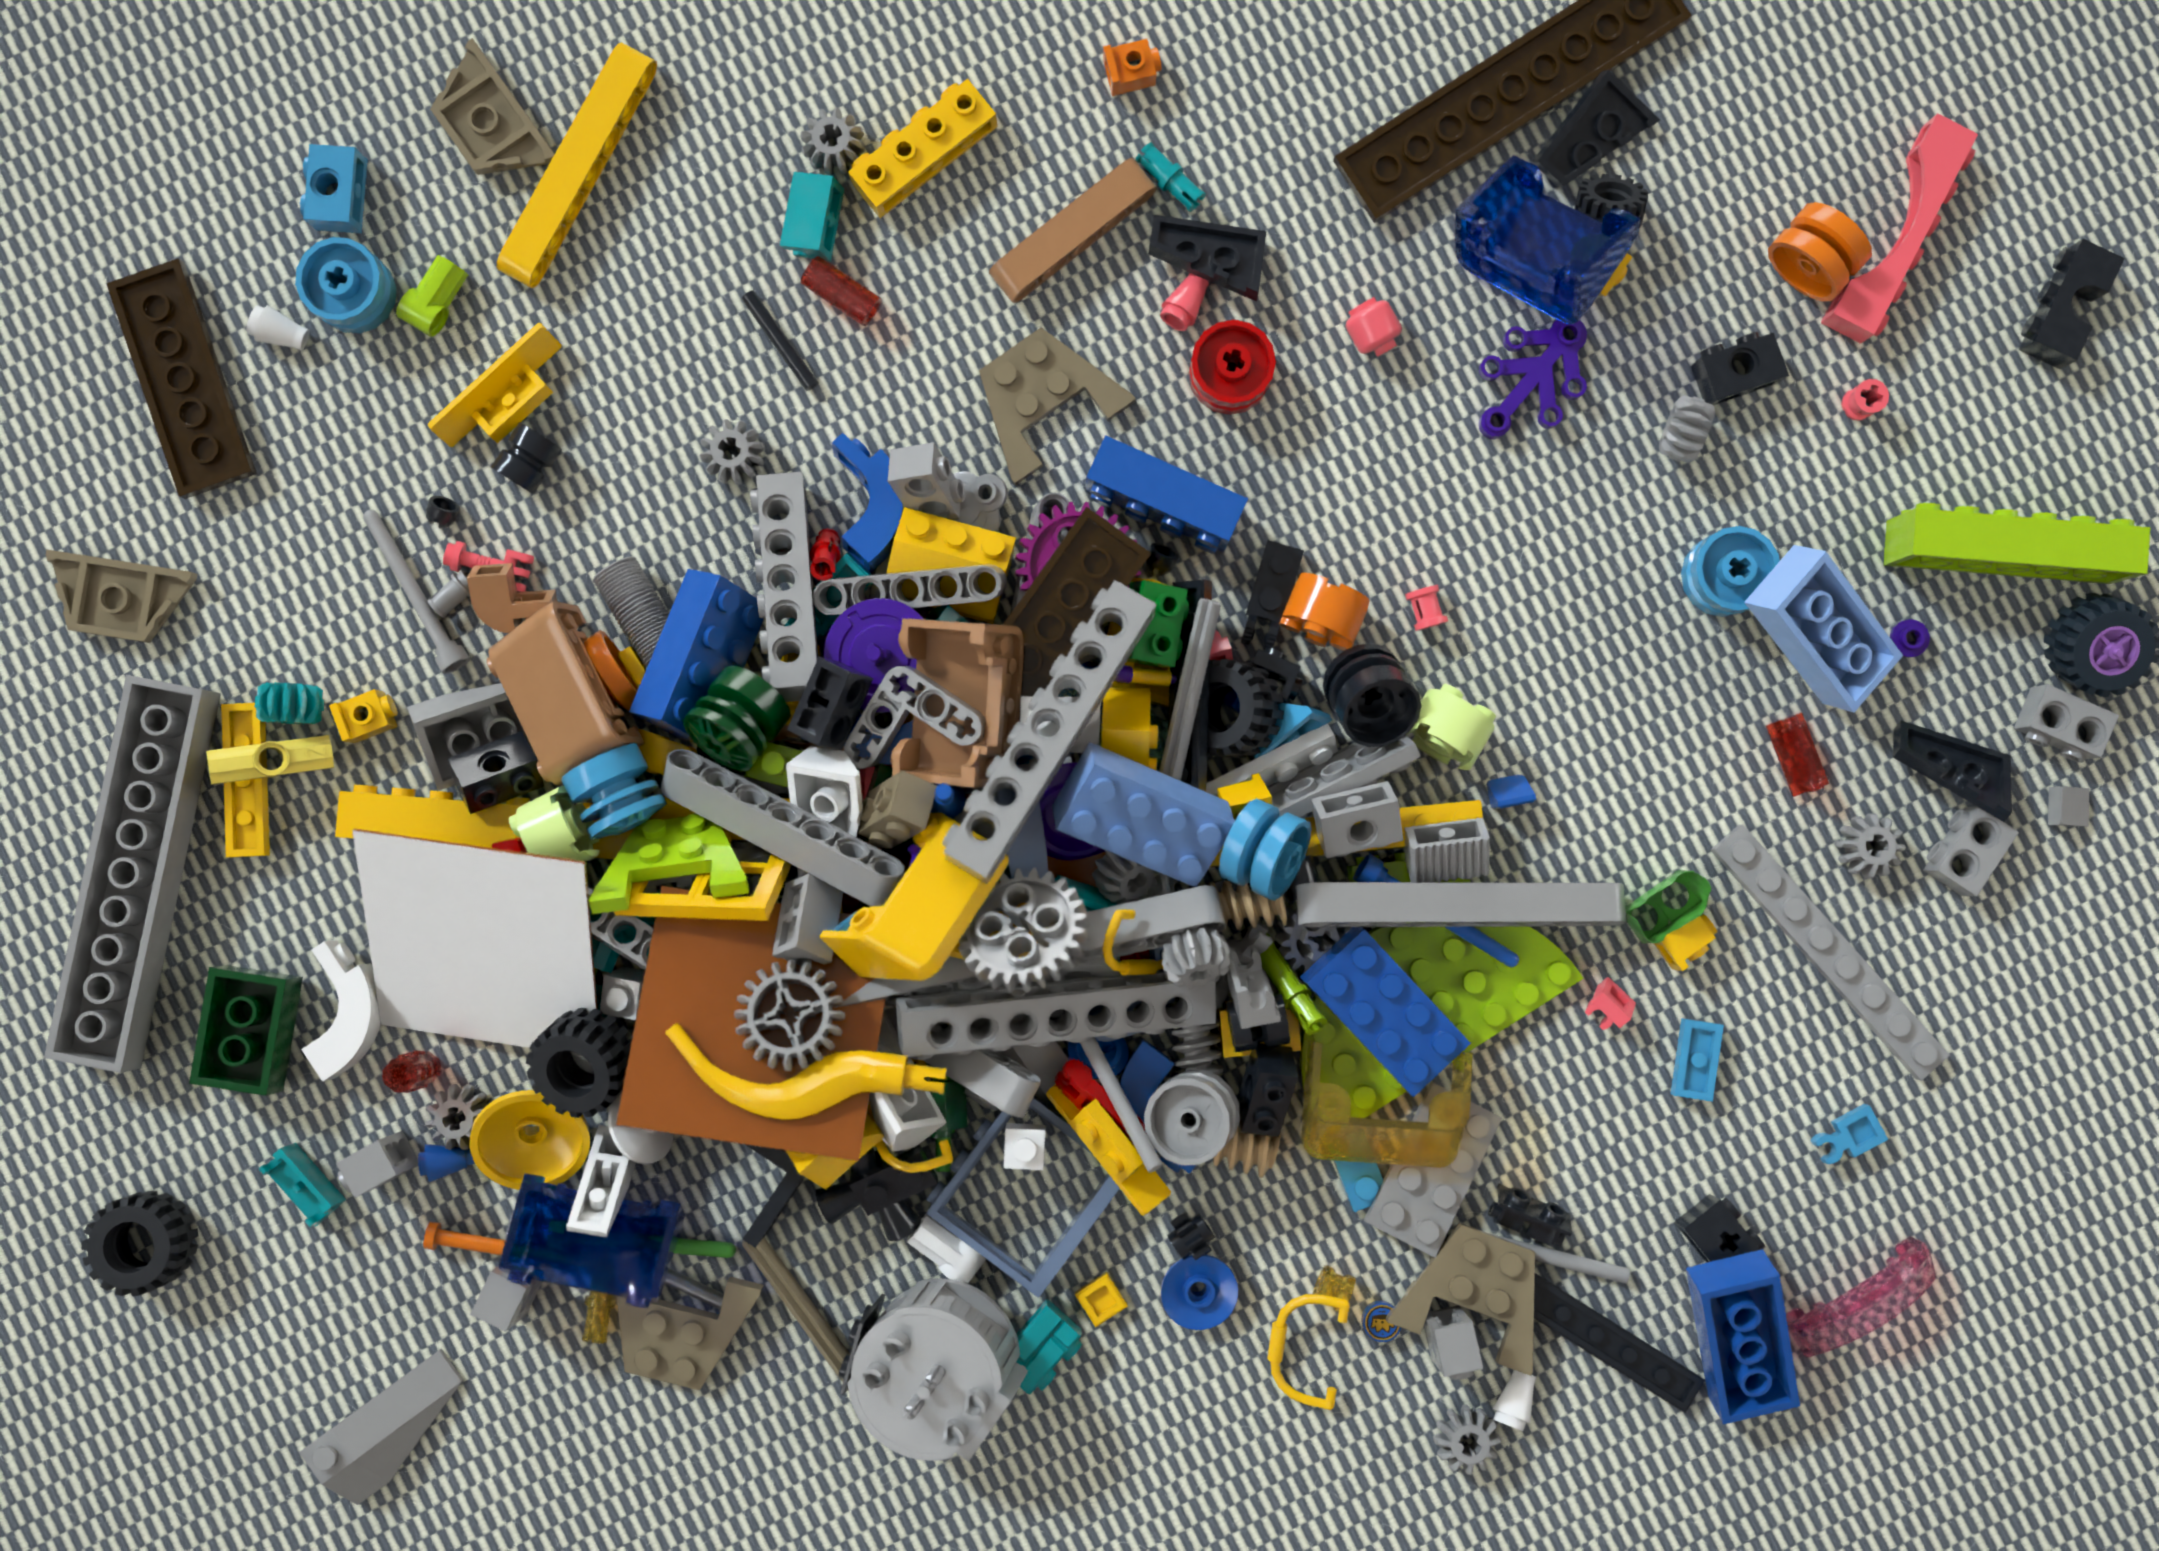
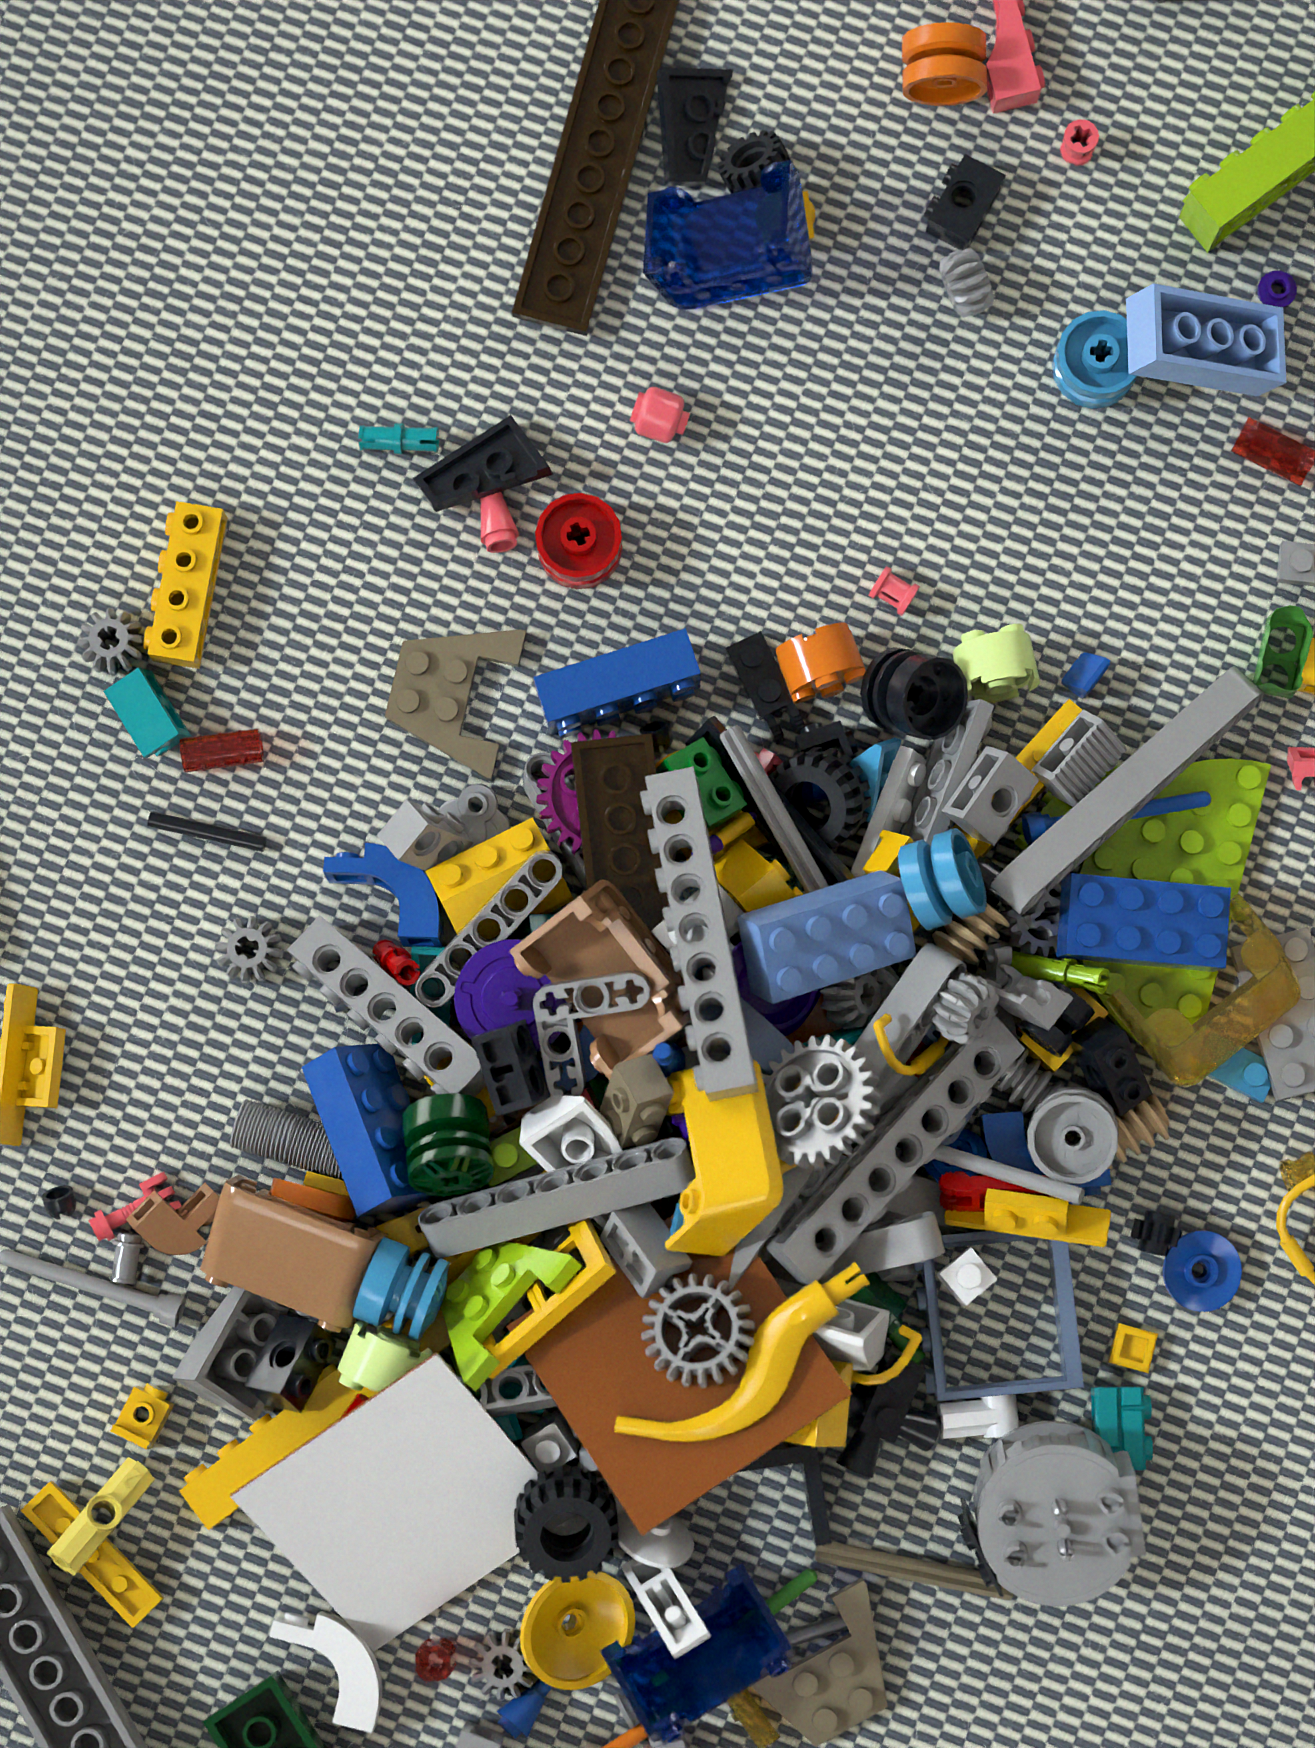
camera: 40 degrees left, 5 degrees down
(289, 703) = (76, 1459): teal gear -> none
(526, 457) = (91, 1100): black wheel -> none
(1072, 230) = (360, 545): medium nougat beam -> none
(1126, 77) = (292, 394): orange brick -> none
(1537, 371) = (815, 339): dark purple plant -> none

